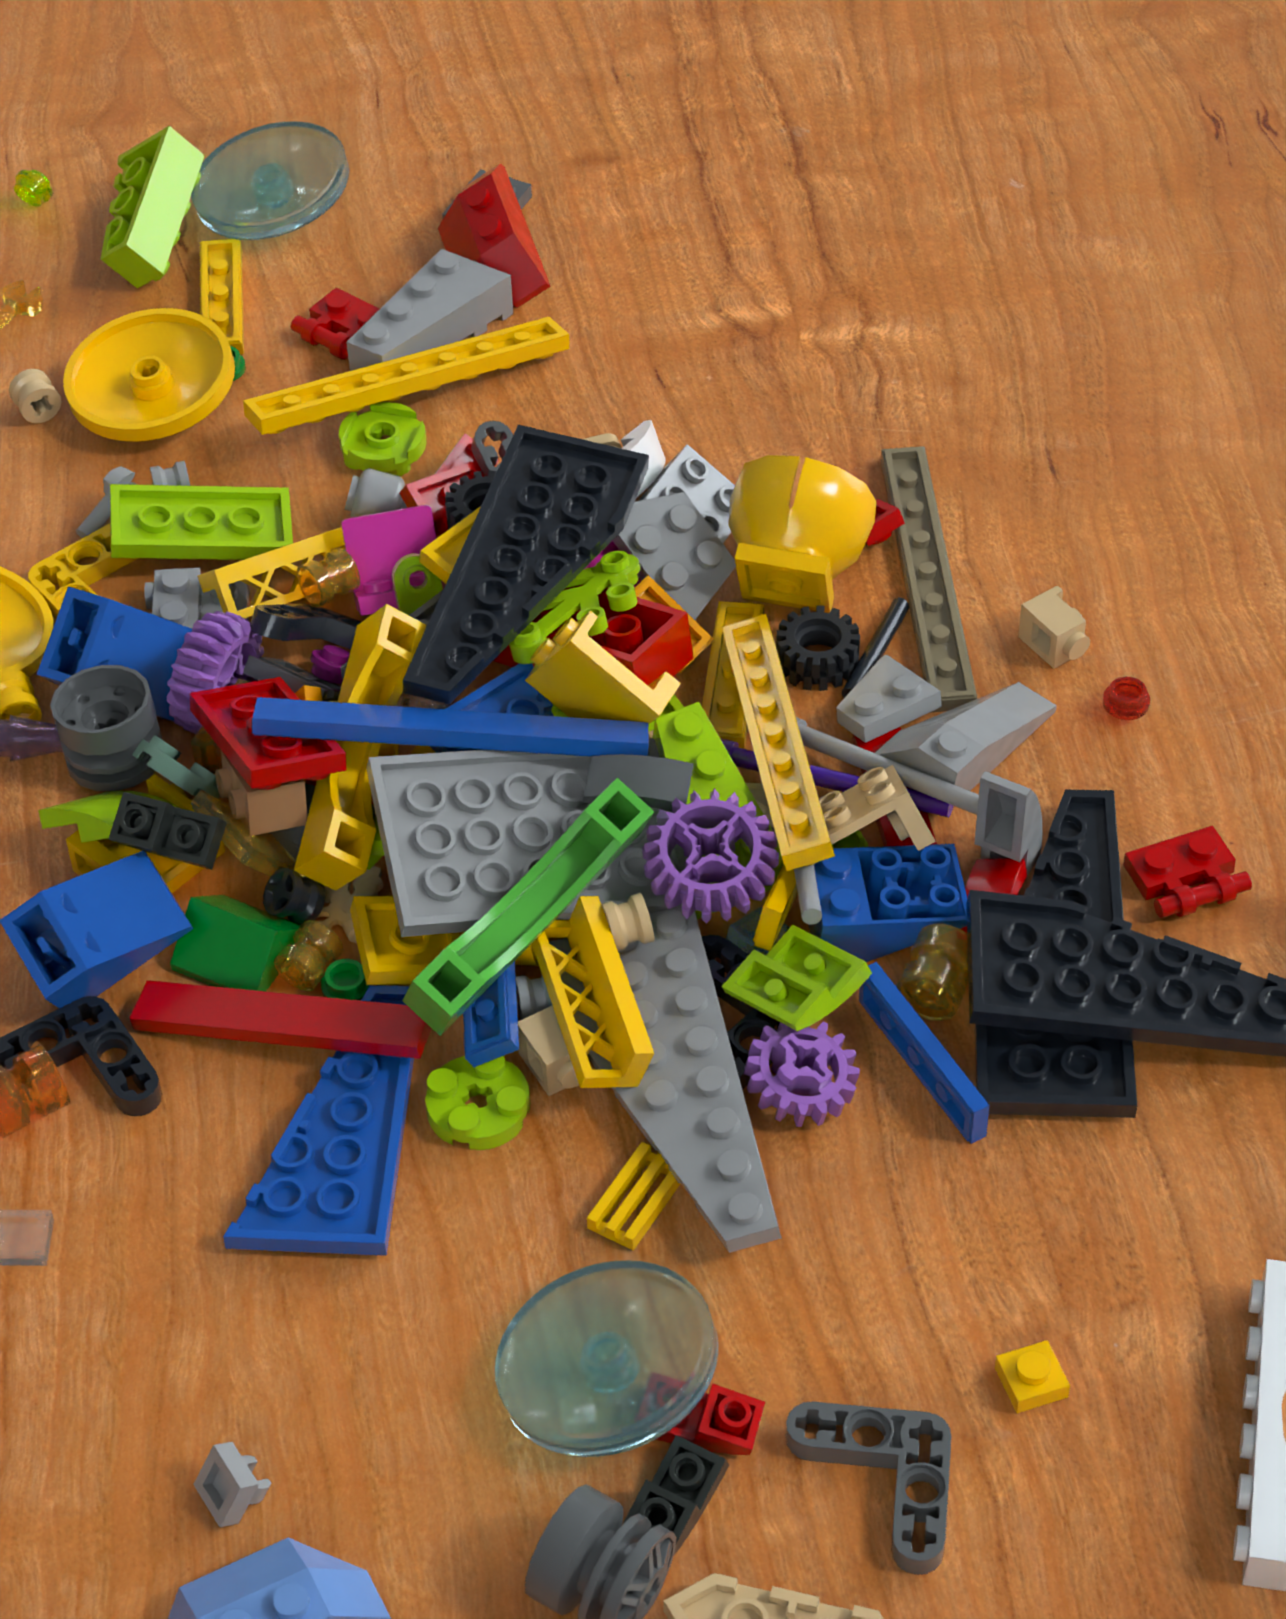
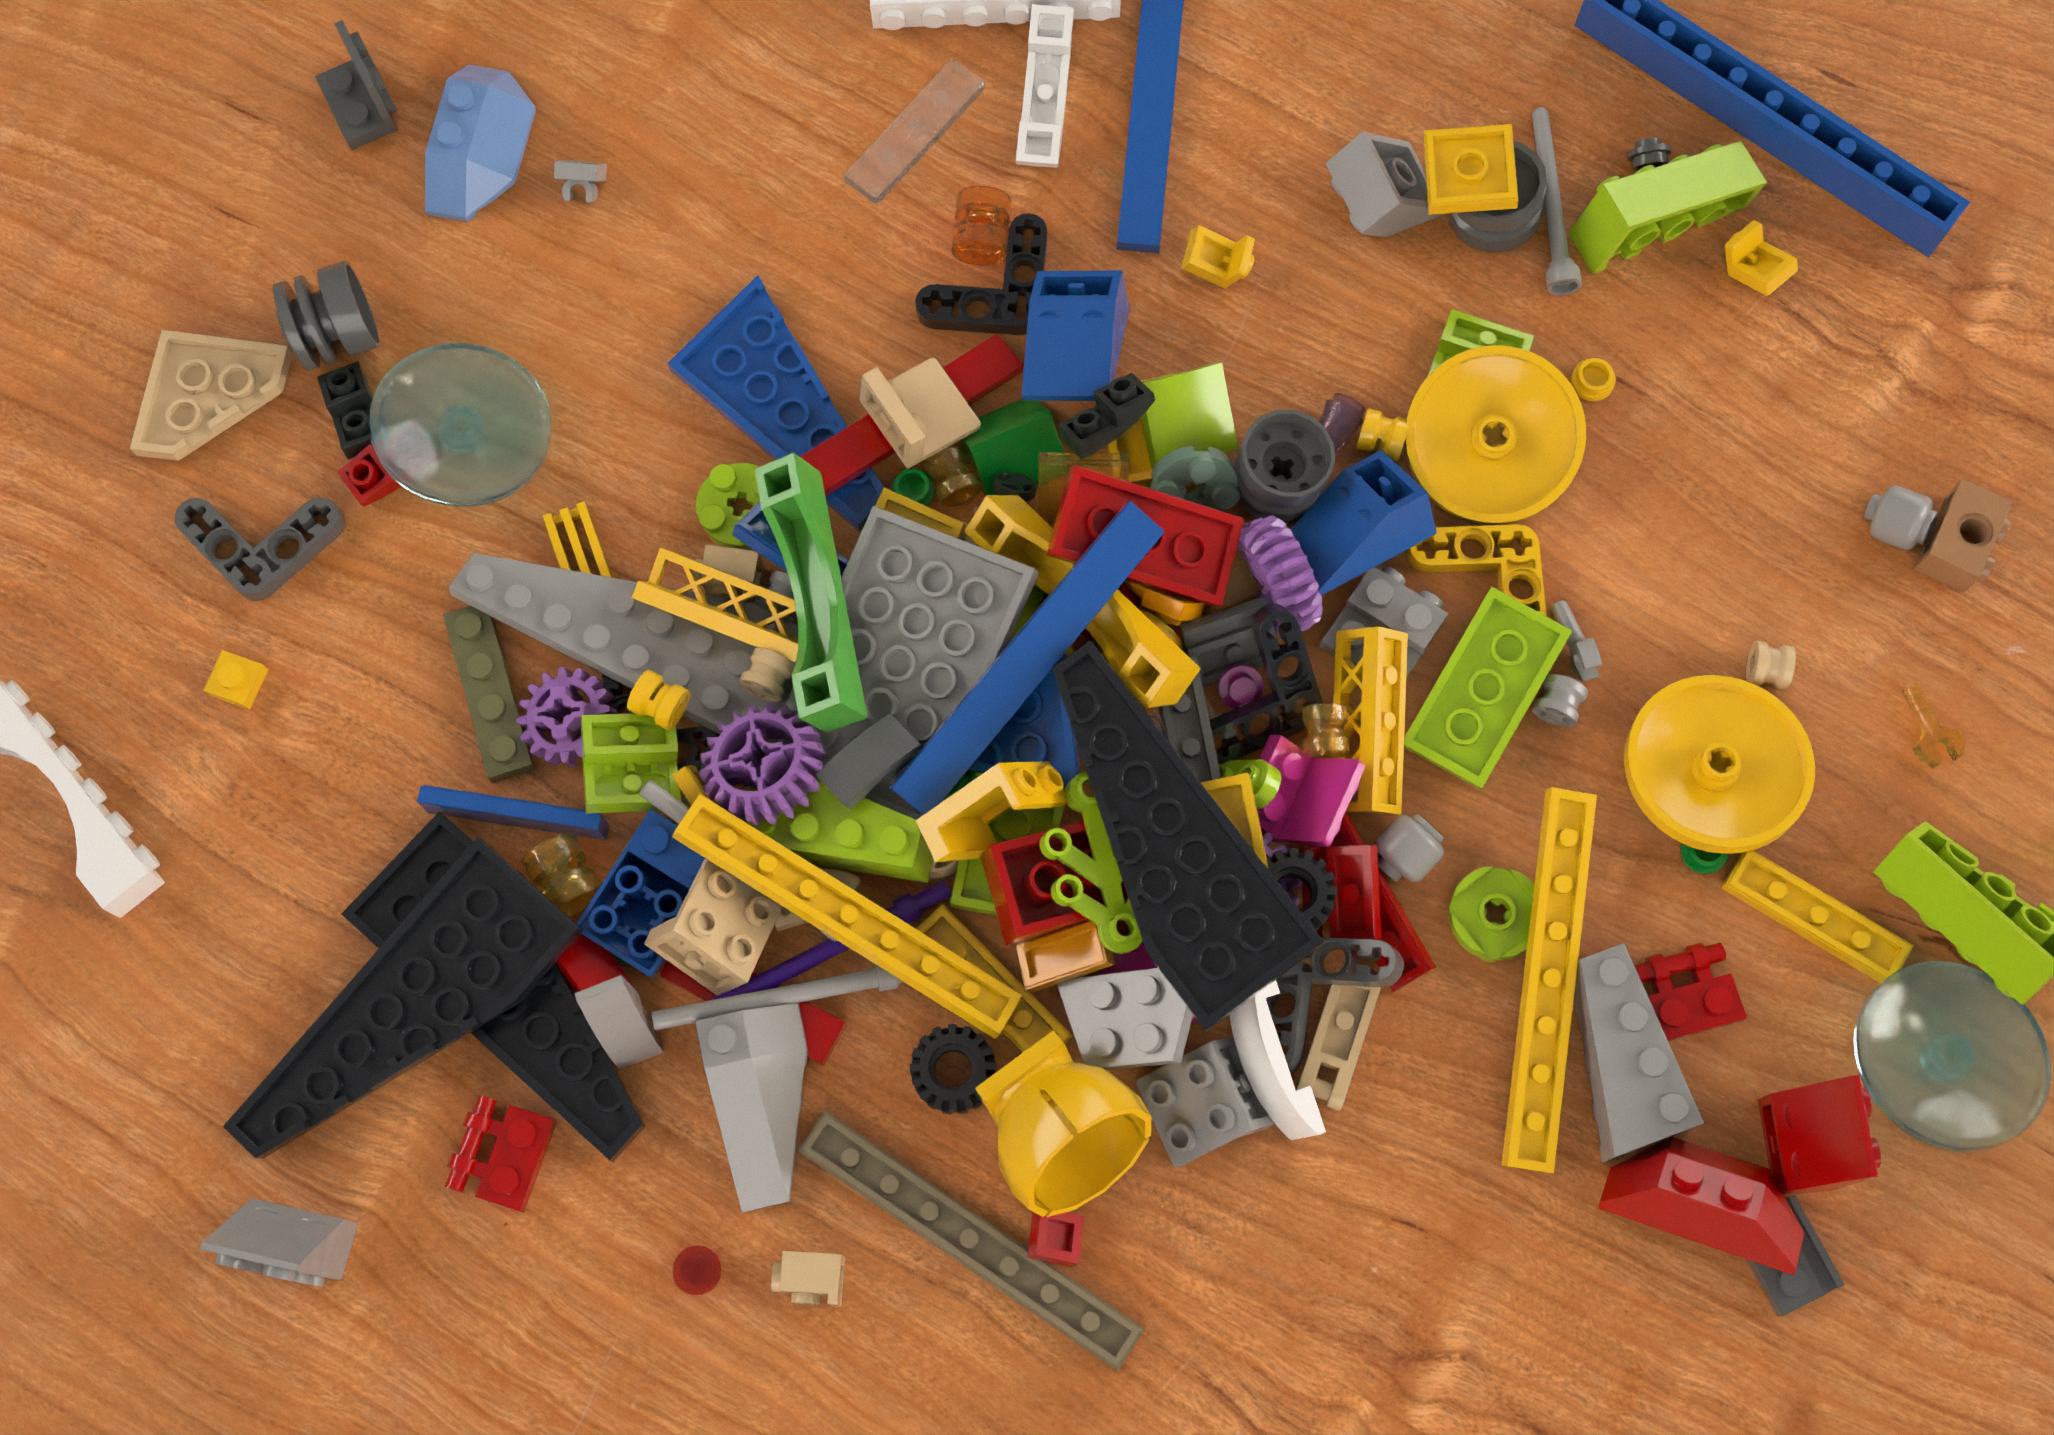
camera: 130 degrees right, 25 degrees up
(274, 989) = (918, 410): none -> tan bracket
(395, 192) = (1820, 1136): none -> red slope
(725, 978) = (658, 699): none -> yellow wheel
(838, 1163) = (488, 693): none -> olive plate
(878, 643) = (921, 1122): black bar -> none
(886, 700) = (850, 1070): light grey wing -> none

